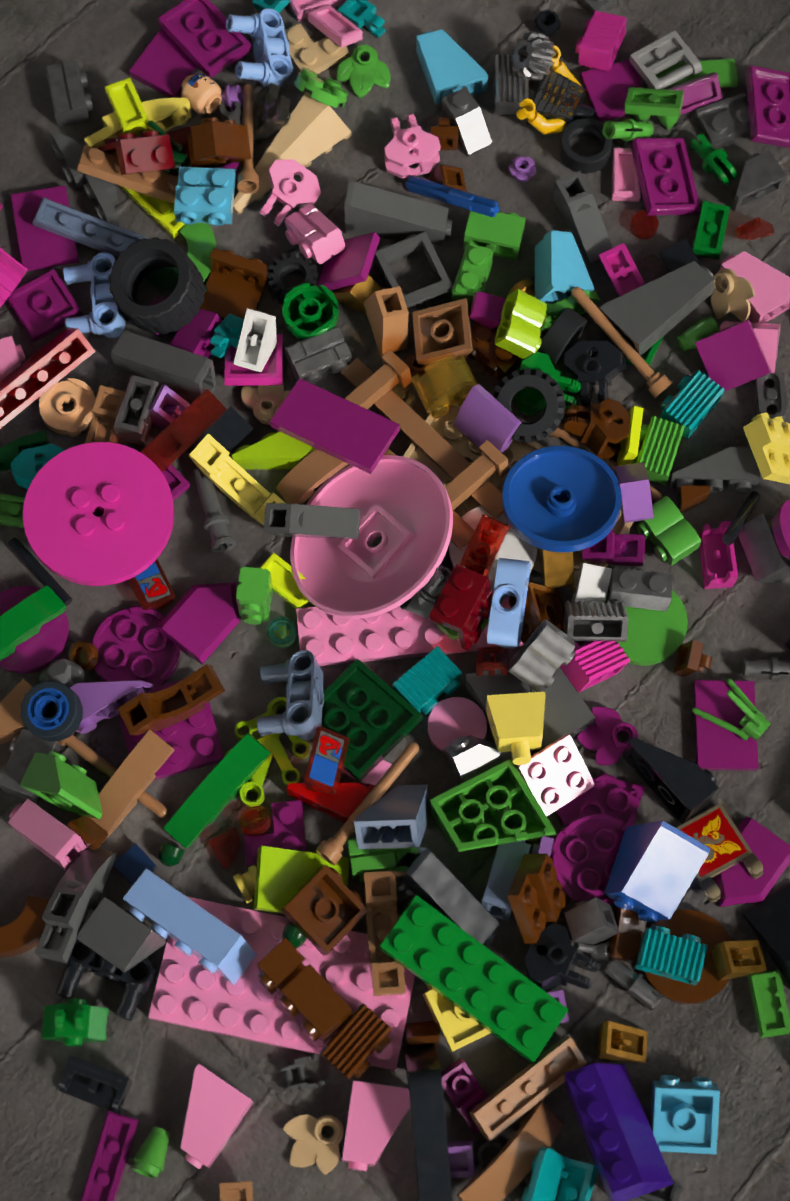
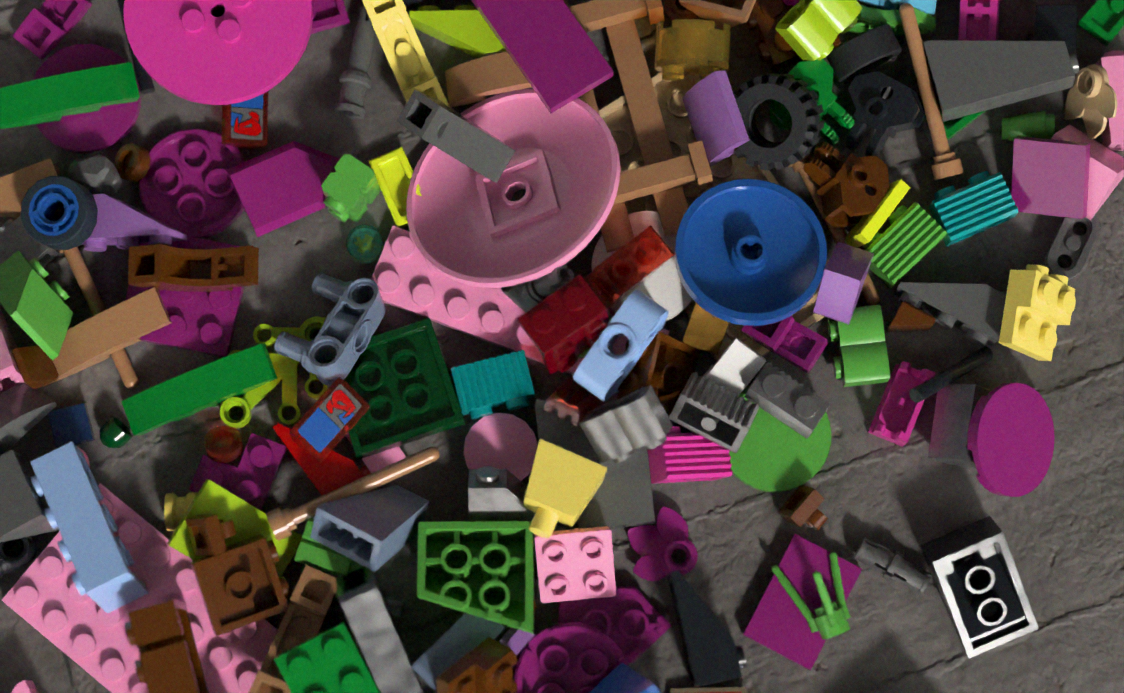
camera: 30 degrees right, 10 degrees up
(226, 847) = (179, 456): clear red tile -> none
(283, 883) = (209, 533): none -> reddish brown tile
(293, 935) = (191, 595): dark green hinge -> none

